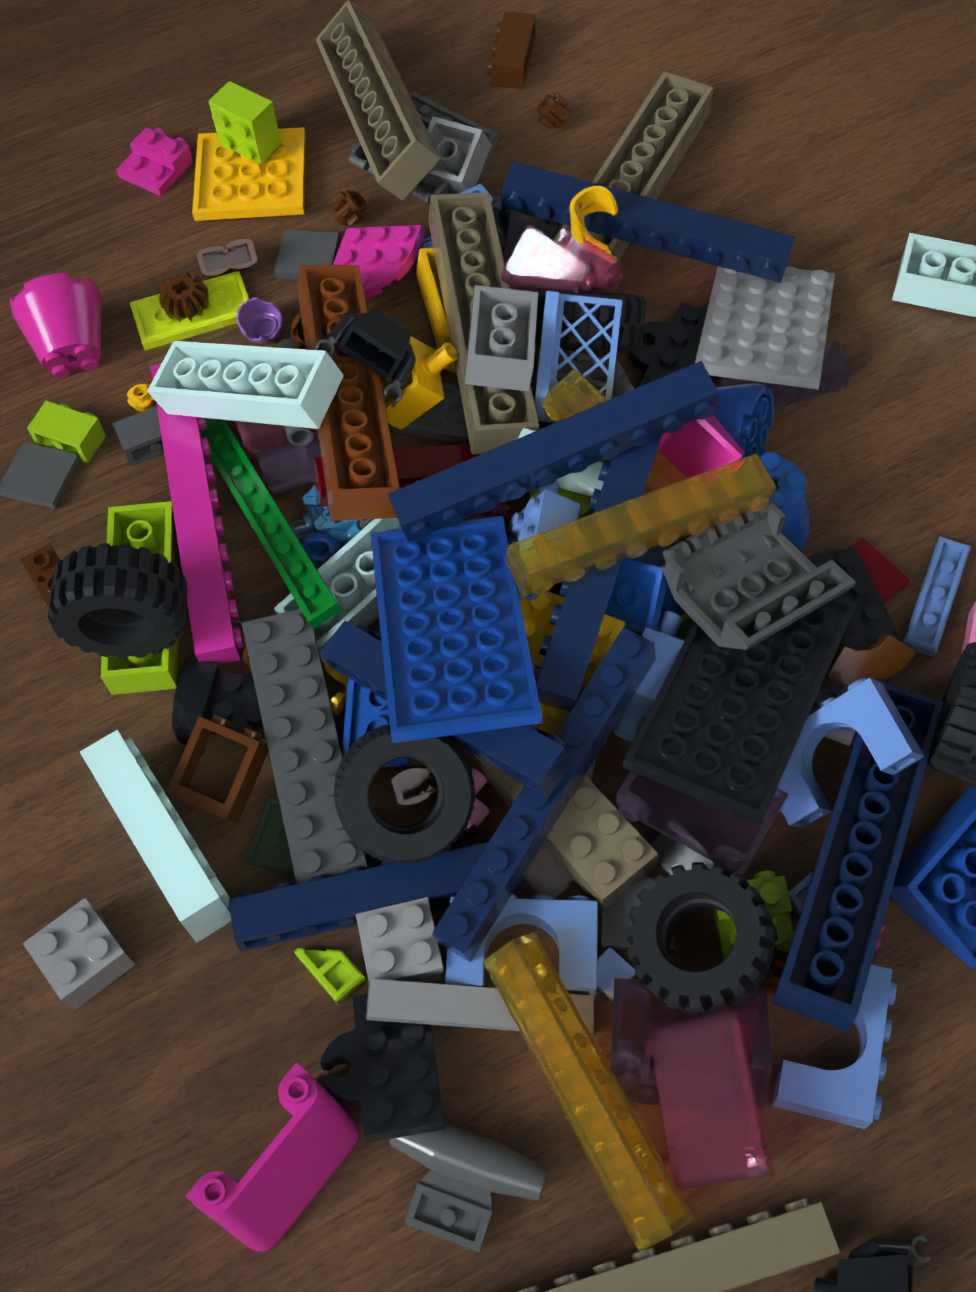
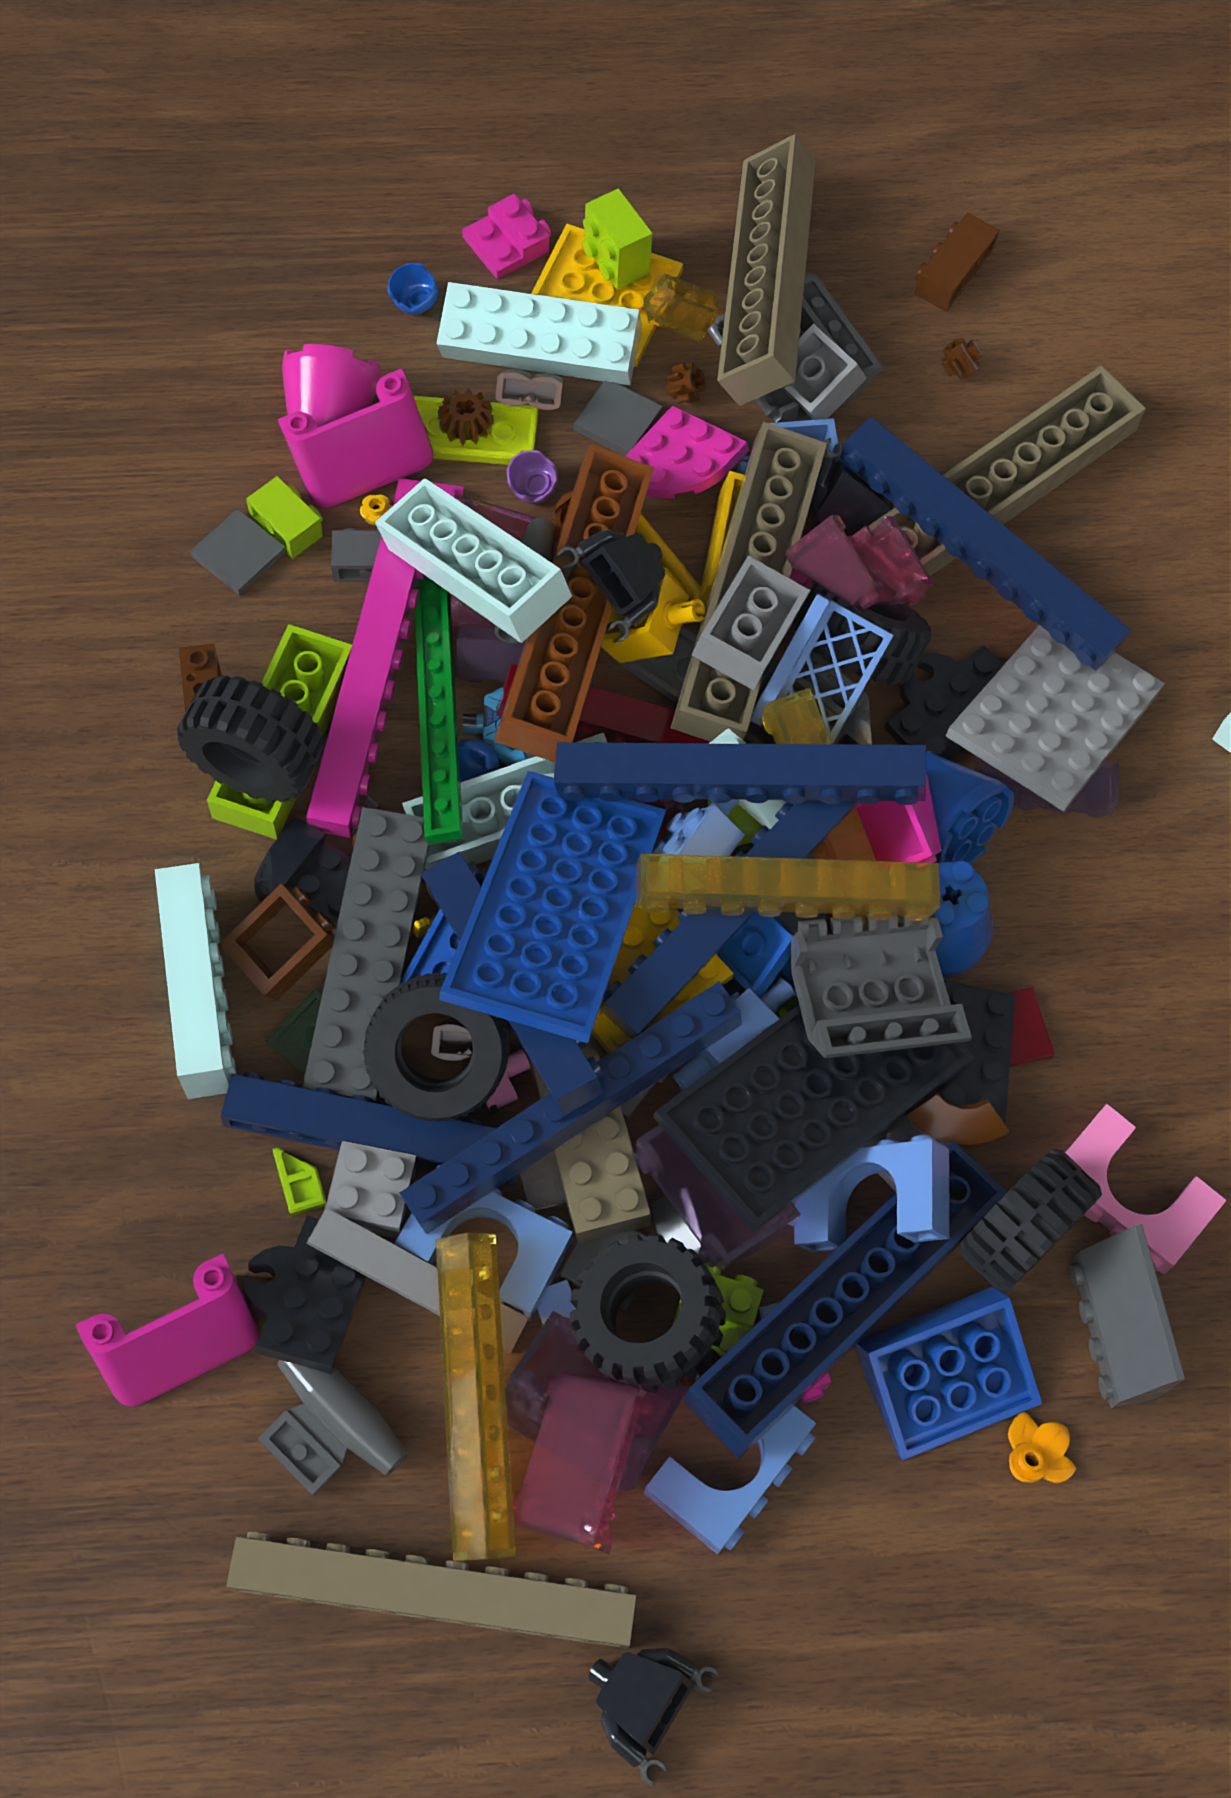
camera: 15 degrees right, 5 degrees up
(78, 954) = (76, 1061): light grey brick -> none
(96, 224) = (413, 288): none -> blue hair
(105, 351) = (361, 448): none -> dark pink windscreen
(214, 214) = (539, 333): none -> light aqua brick
(319, 154) = (681, 307): none -> clear yellow brick
(590, 200) = (925, 500): yellow helmet -> none
(936, 596) = (1074, 1082): medium blue tile -> none

